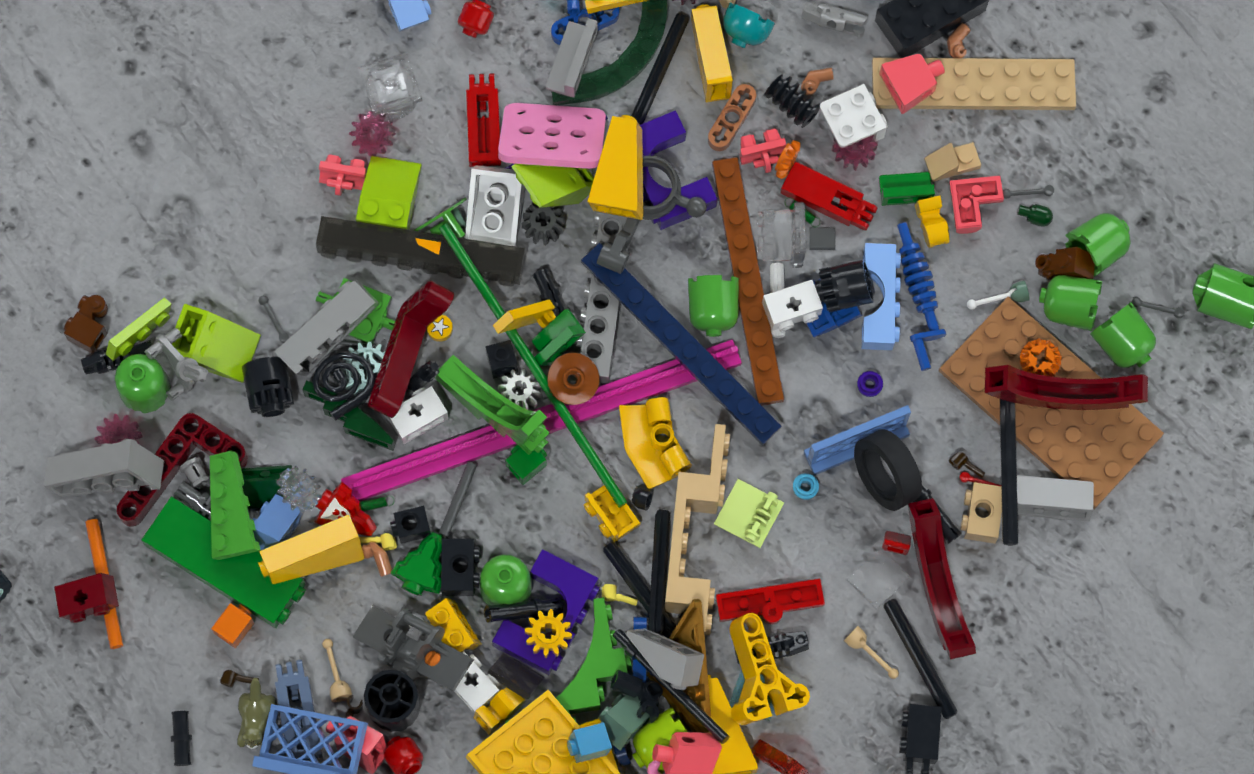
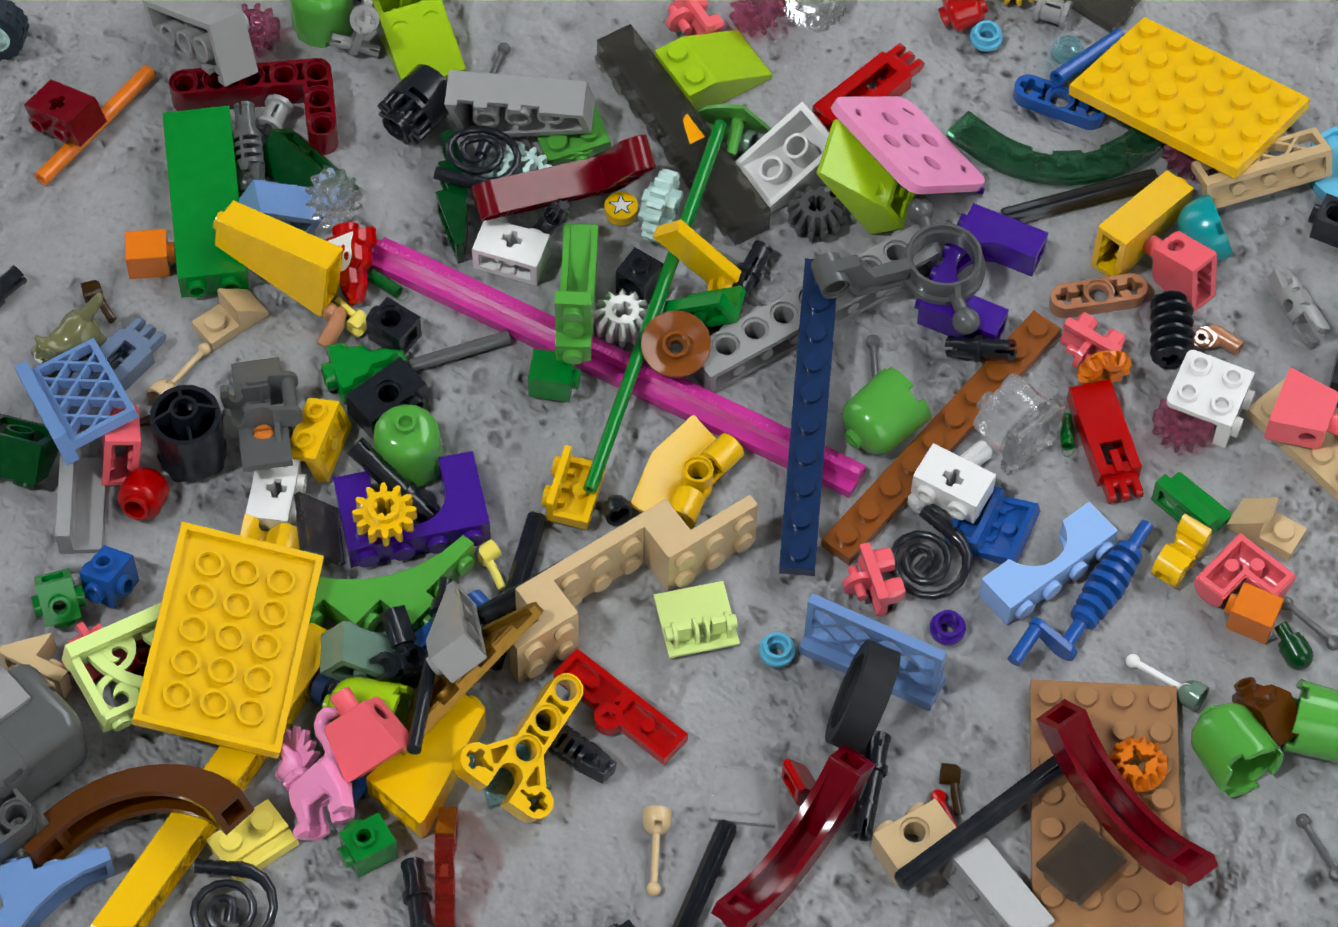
camera: 50 degrees right, 15 degrees down
(230, 519) = (246, 157): bright green wing -> none
(318, 612) = (232, 316): none -> tan slope
(468, 307) = (660, 203): none -> light aqua gear
(504, 15) = (989, 30): none -> medium azure plate
(572, 57) = (1009, 111): light grey panel -> none
(589, 743) = (296, 628): dark azure brick -> none
(619, 174) = (927, 214): yellow slope -> none
(653, 265) = (873, 343): none -> dark grey hinge
(715, 212) = (980, 348): none -> black pin
(759, 58) = (1183, 267): none -> coral torso
(818, 401) = (872, 565): none -> coral hips
(821, 362) = (955, 537): none -> black piece
(822, 238) = (1058, 471): dark grey piece -> none
(845, 286) = (1023, 513): black gear -> none
(1000, 216) = (1253, 612): none -> orange brick
(1073, 440) = (1080, 863): none -> clear smoke piece
(1126, 338) = (1248, 828): bright green cylinder -> none

